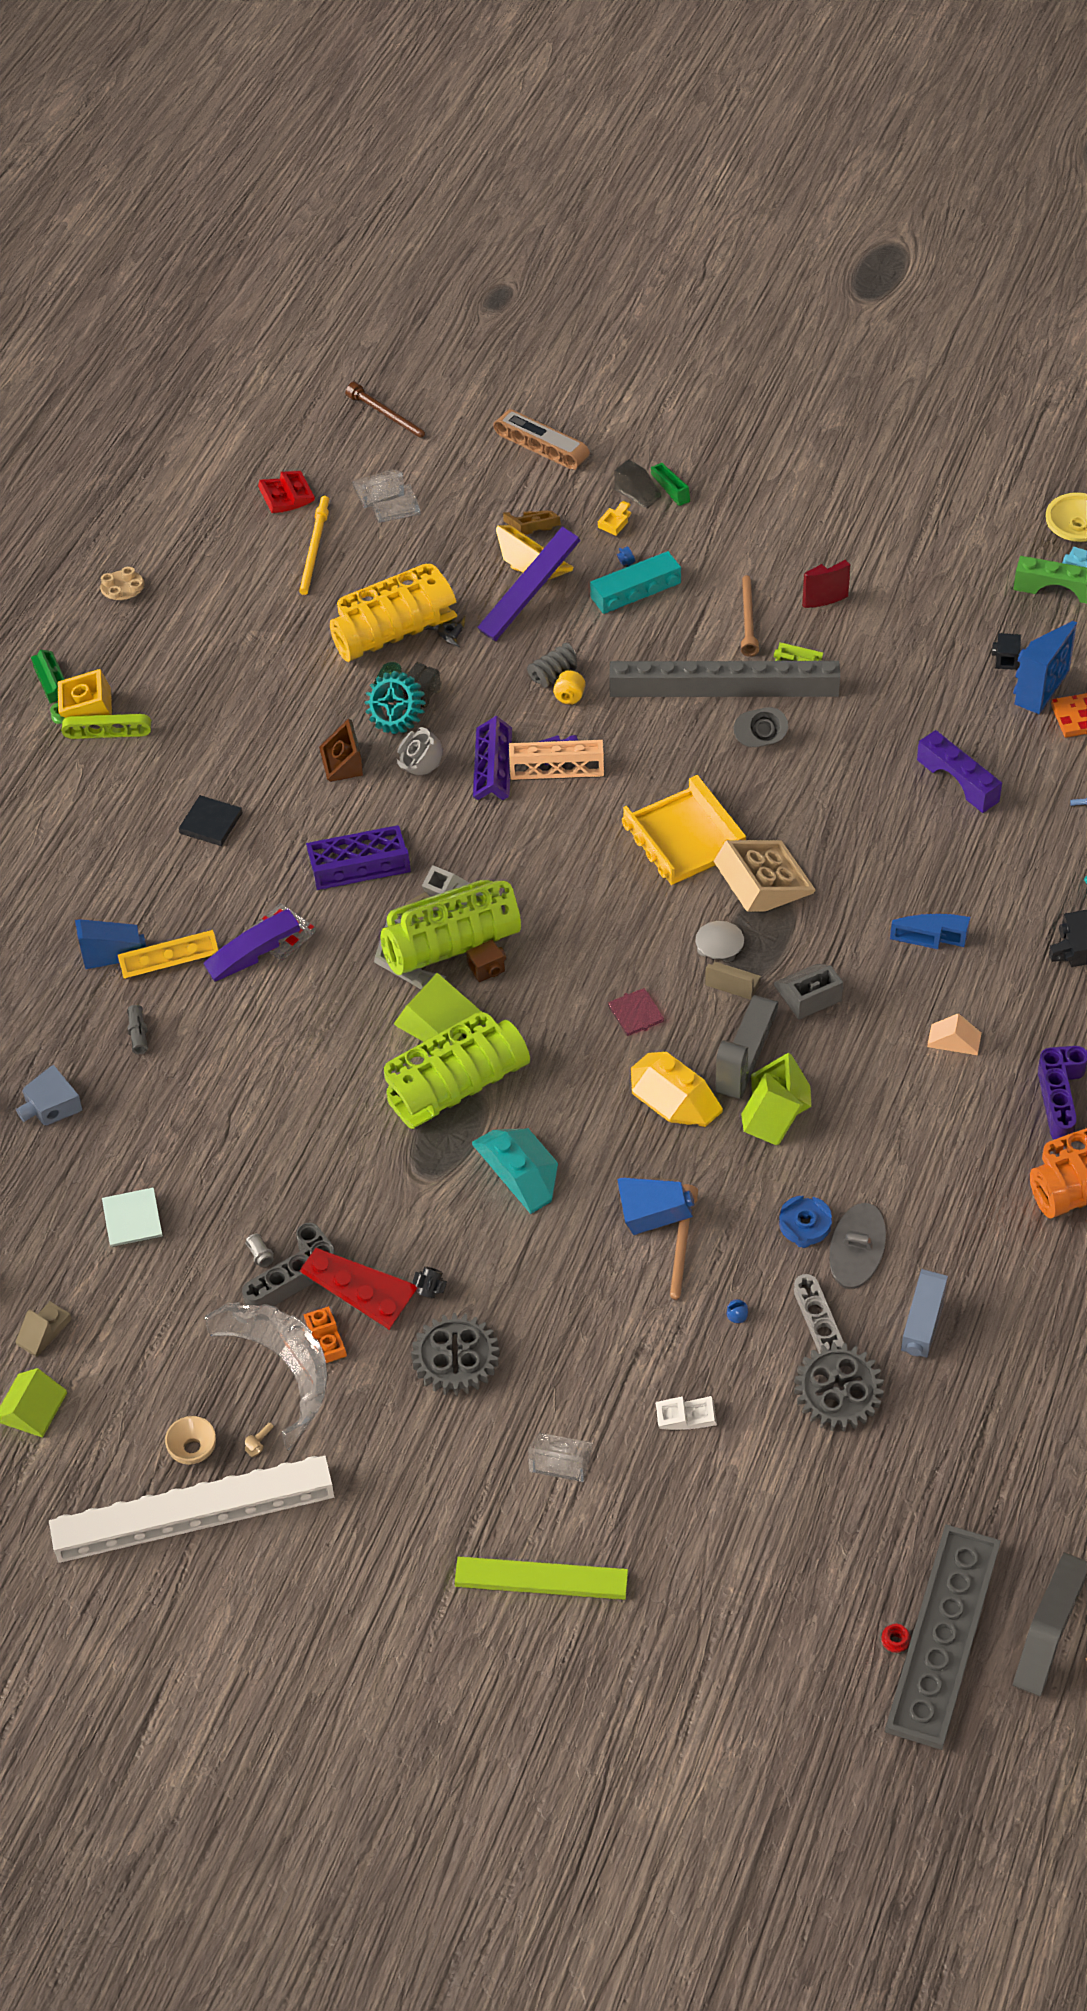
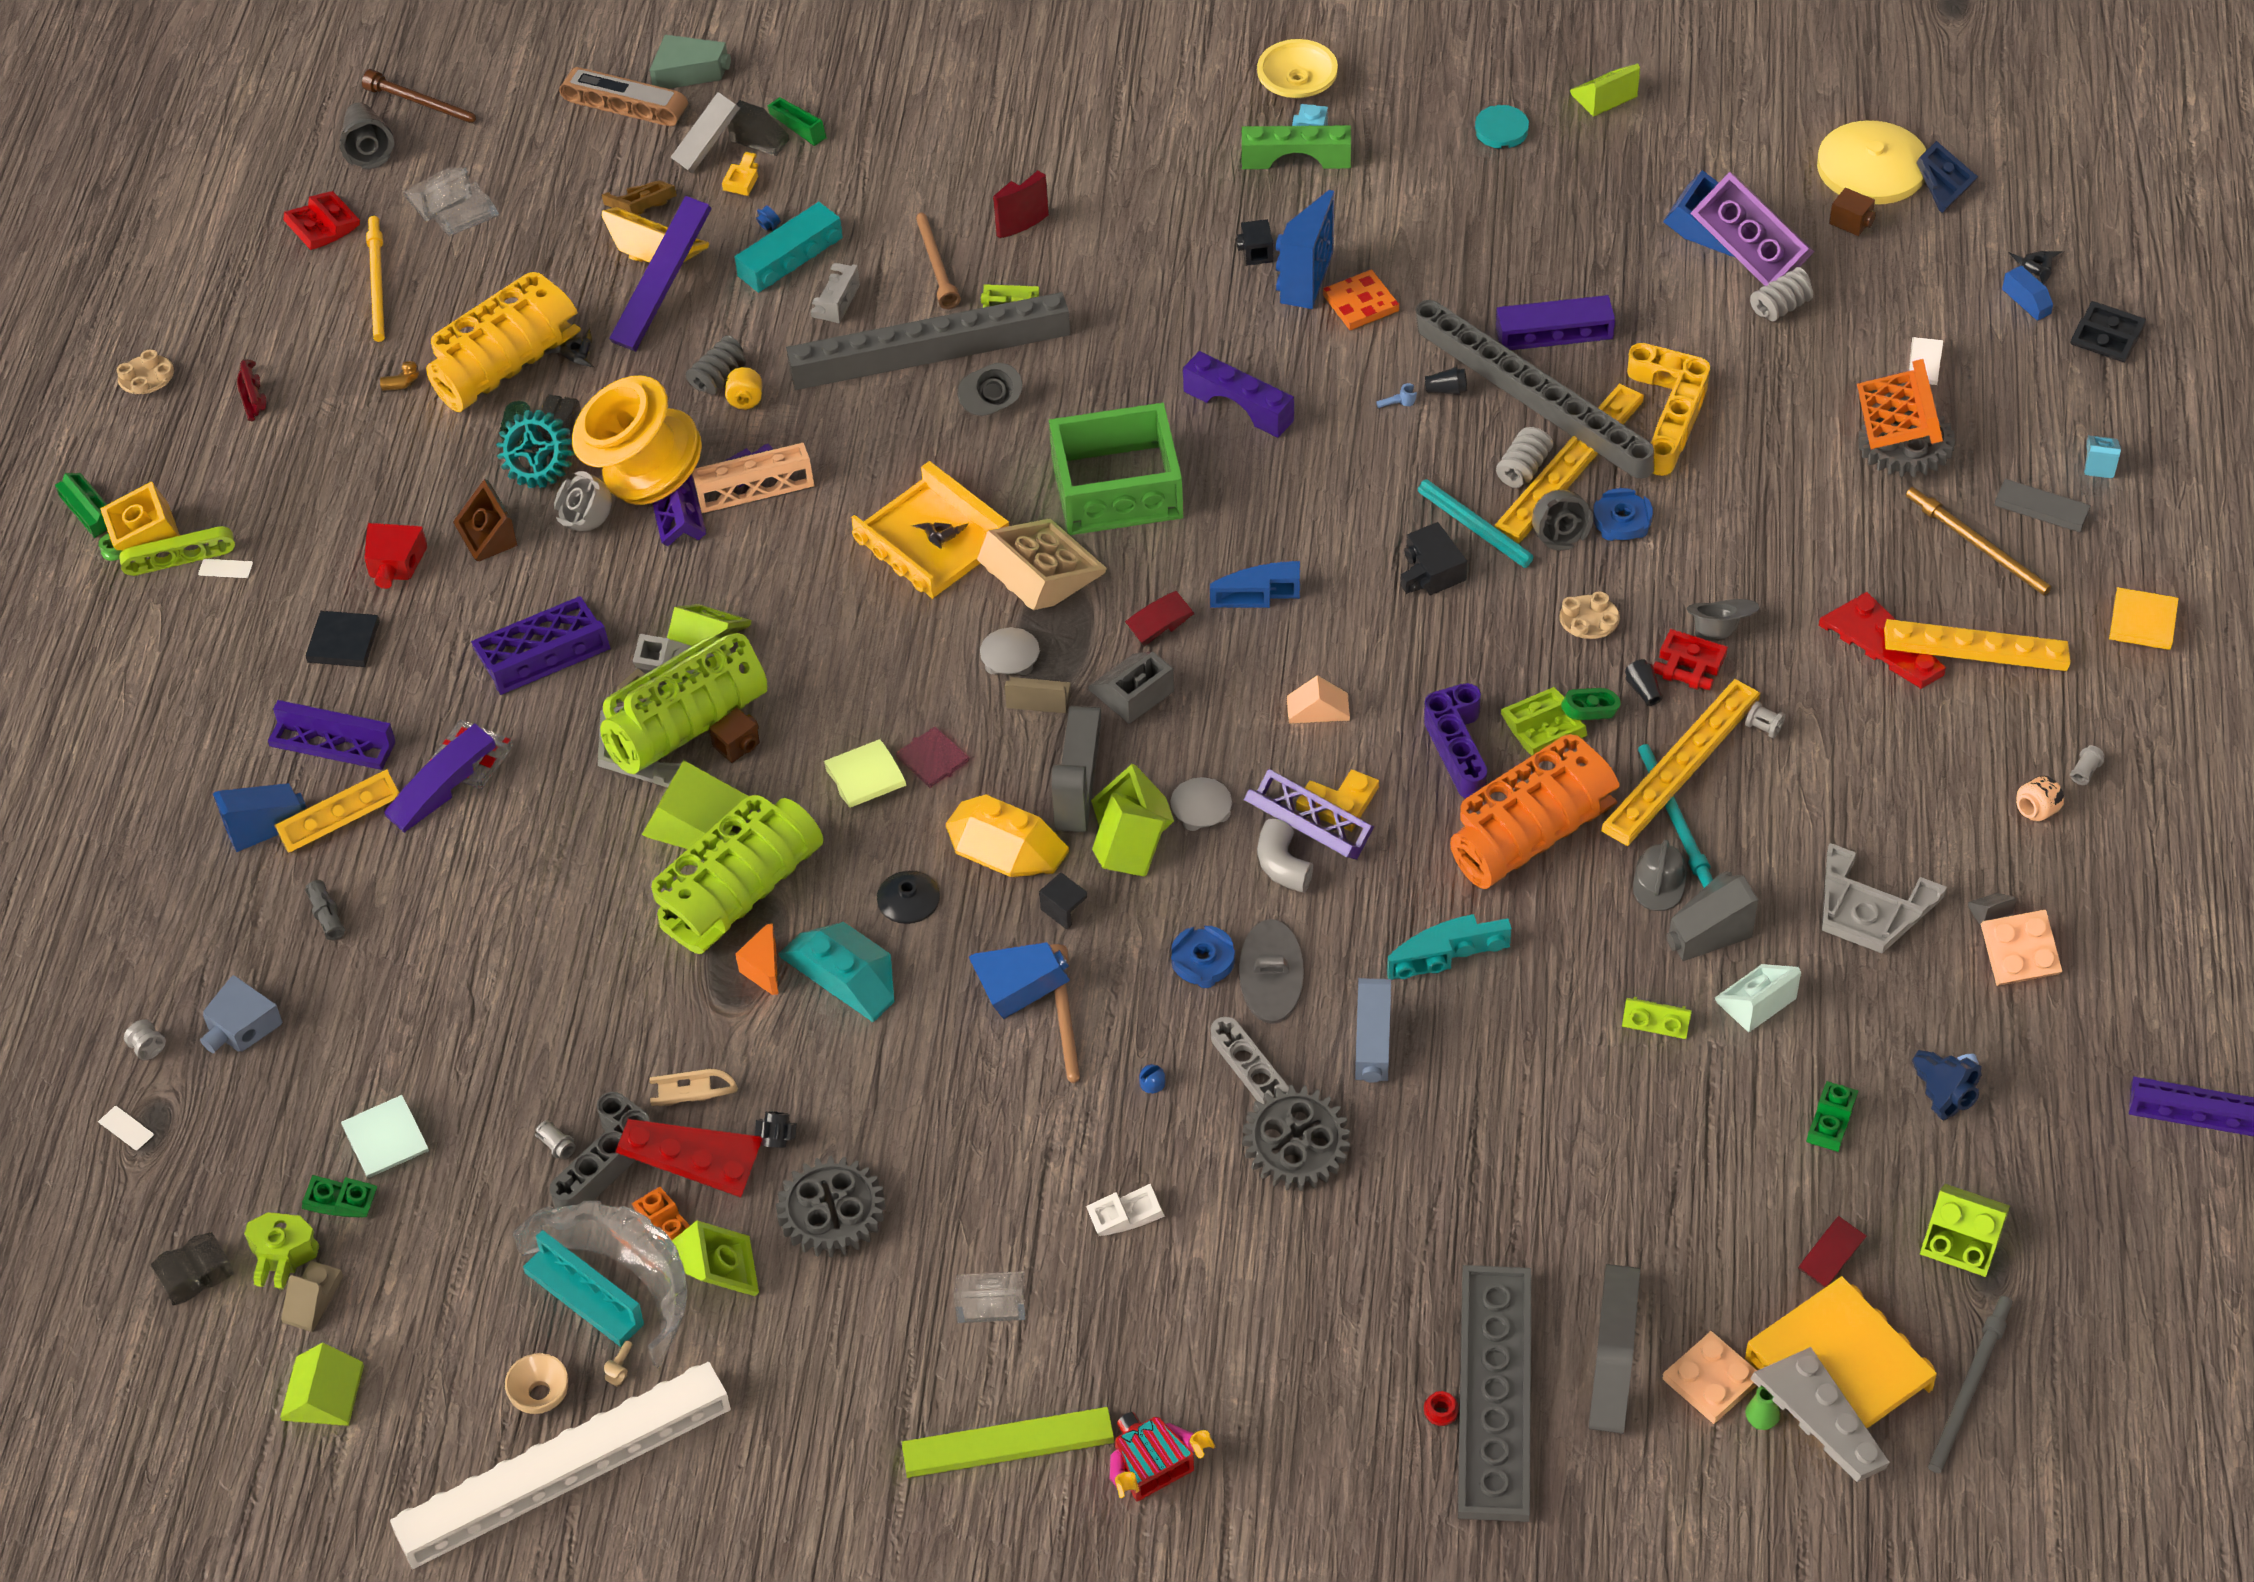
camera: 15 degrees left, 0 degrees up
(28, 1285) = (278, 1247): none -> lime hinge
(84, 1257) = (335, 1198): none -> green slope
(139, 747) = (225, 568): none -> white sticker
(182, 886) = (336, 729): none -> dark purple fence
(195, 610) = (250, 389): none -> dark red piece
(248, 1375) = (584, 1290): none -> teal fence
(266, 761) = (393, 552): none -> red torso
(312, 628) = (402, 380): none -> pearl gold arm
(335, 434) = (365, 137): none -> dark grey cone
(356, 1374) = (718, 1257): none -> lime slope
(379, 1237) = (698, 1090): none -> tan piece
(455, 1143) = (759, 960): none -> orange slope
(472, 711) = (637, 440): none -> yellow wheel
(484, 865) = (698, 622): none -> lime slope
(578, 1013) = (865, 773): none -> yellowish green slope
(585, 1127) = (912, 905): none -> black dish
(595, 479) = (705, 132): none -> light grey tile
(598, 421) = (688, 62): none -> sand green slope
(651, 1618) = (1153, 1455): none -> torso
(664, 627) = (837, 293): none -> light grey hinge
(691, 833) = (940, 532): none -> black piece
(704, 1148) = (1061, 898): none -> black panel
(838, 1096) = (1201, 803): none -> light grey dish
(843, 838) = (1122, 500): none -> bright green window
(846, 937) = (1159, 616): none -> dark red slope
(886, 1158) = (1277, 860): none -> light grey cylinder
(913, 1129) = (1302, 823): none -> fence
(952, 1124) = (1352, 796): none -> yellow plate
(994, 1256) = (1436, 946): none -> teal slope

